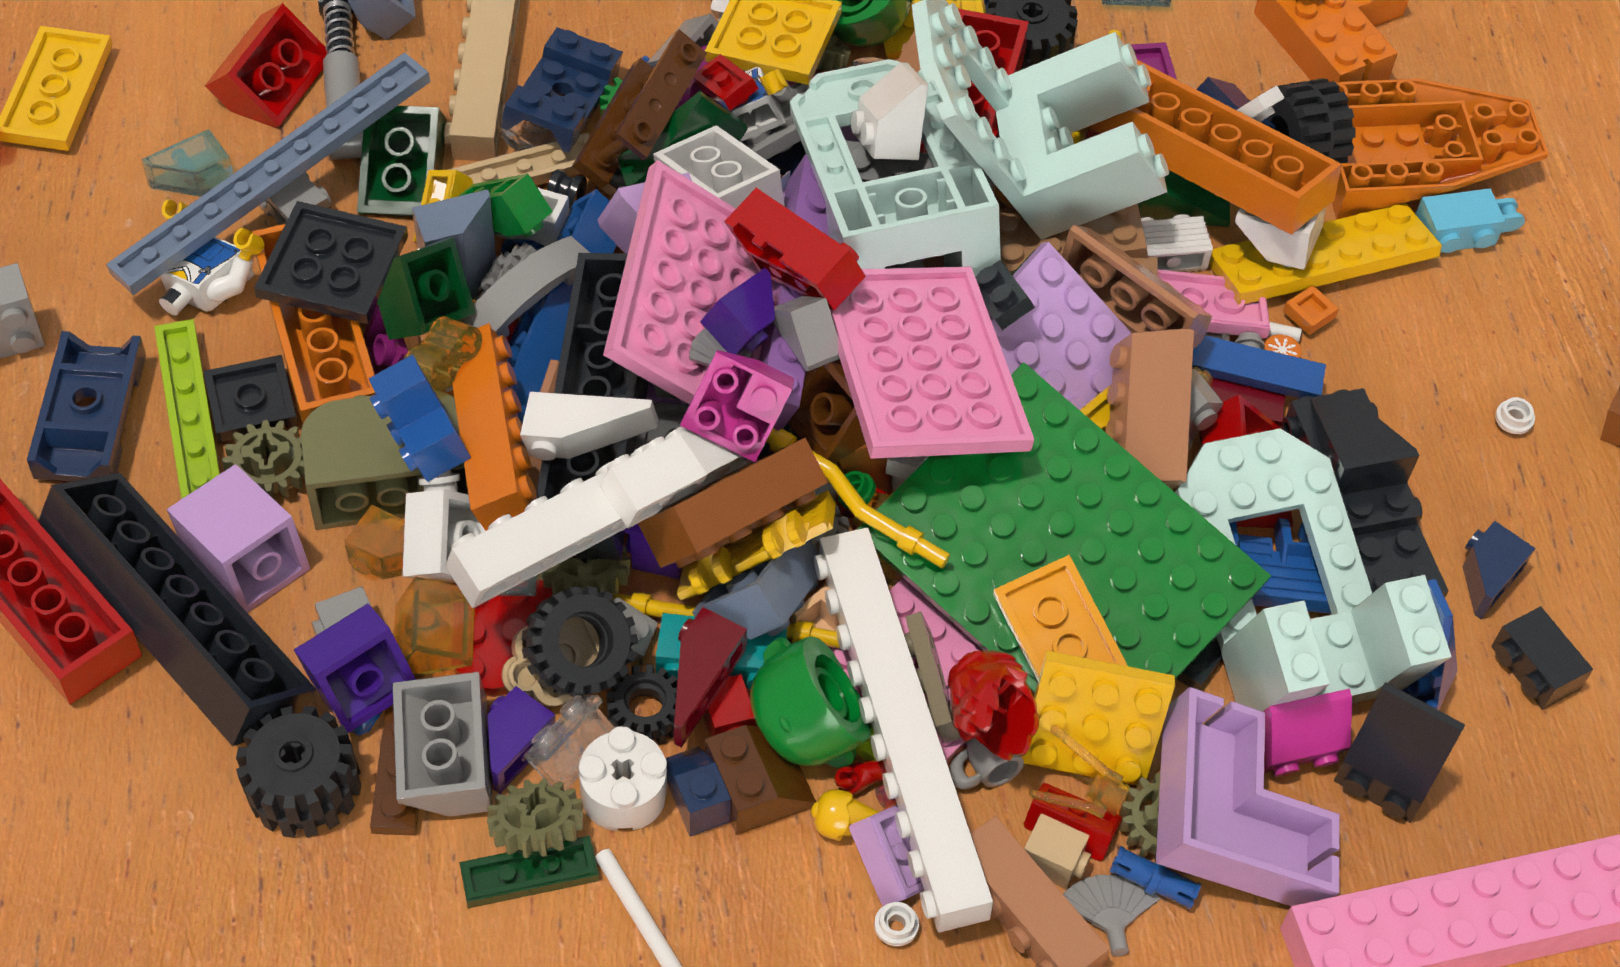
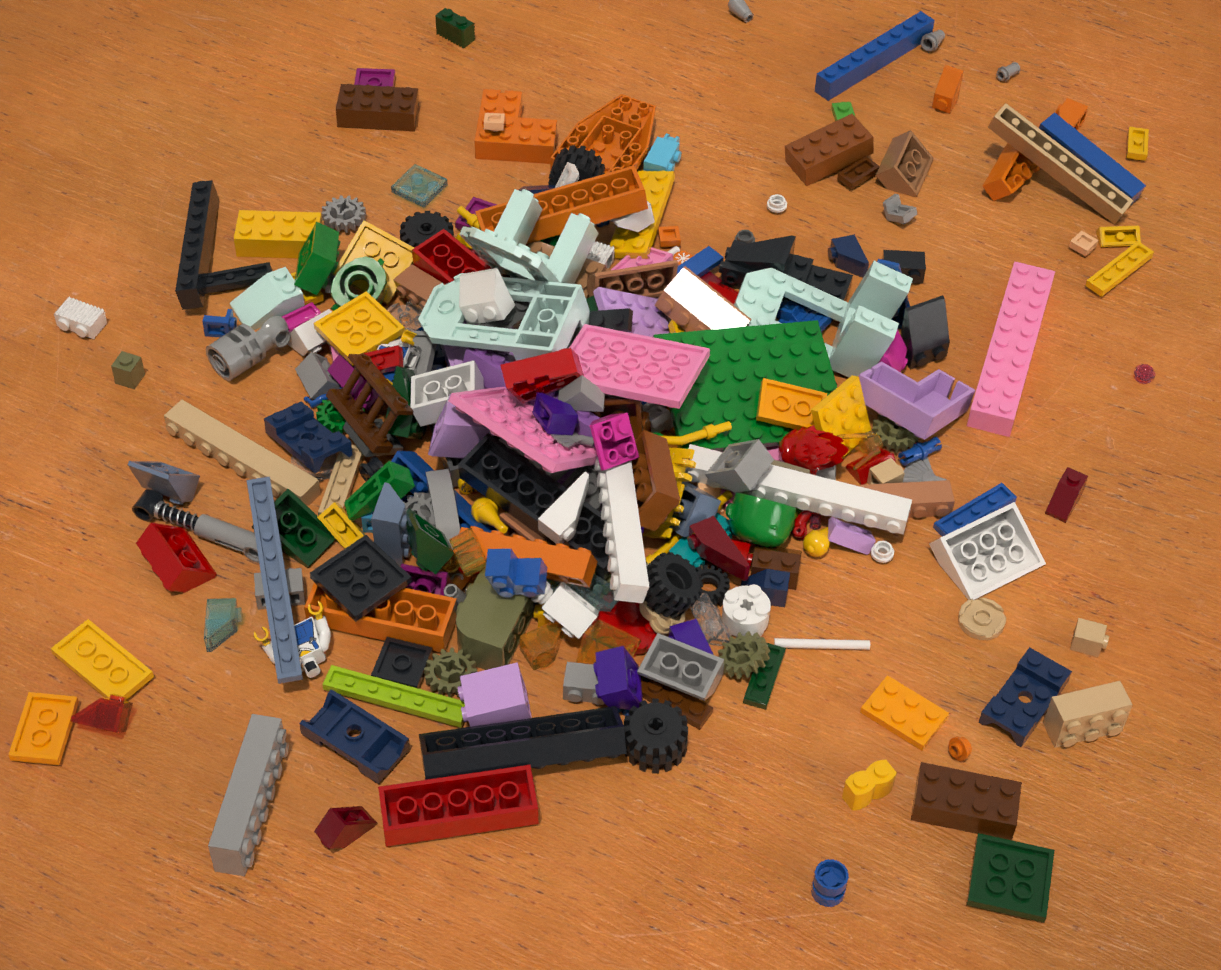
camera: 55 degrees left, 5 degrees down
(547, 348) = (486, 512): none -> yellow piece
(652, 479) = (632, 492): white brick -> none
(861, 614) = (741, 466): none -> light grey slope
(1398, 410) = (745, 236): none -> dark grey plate

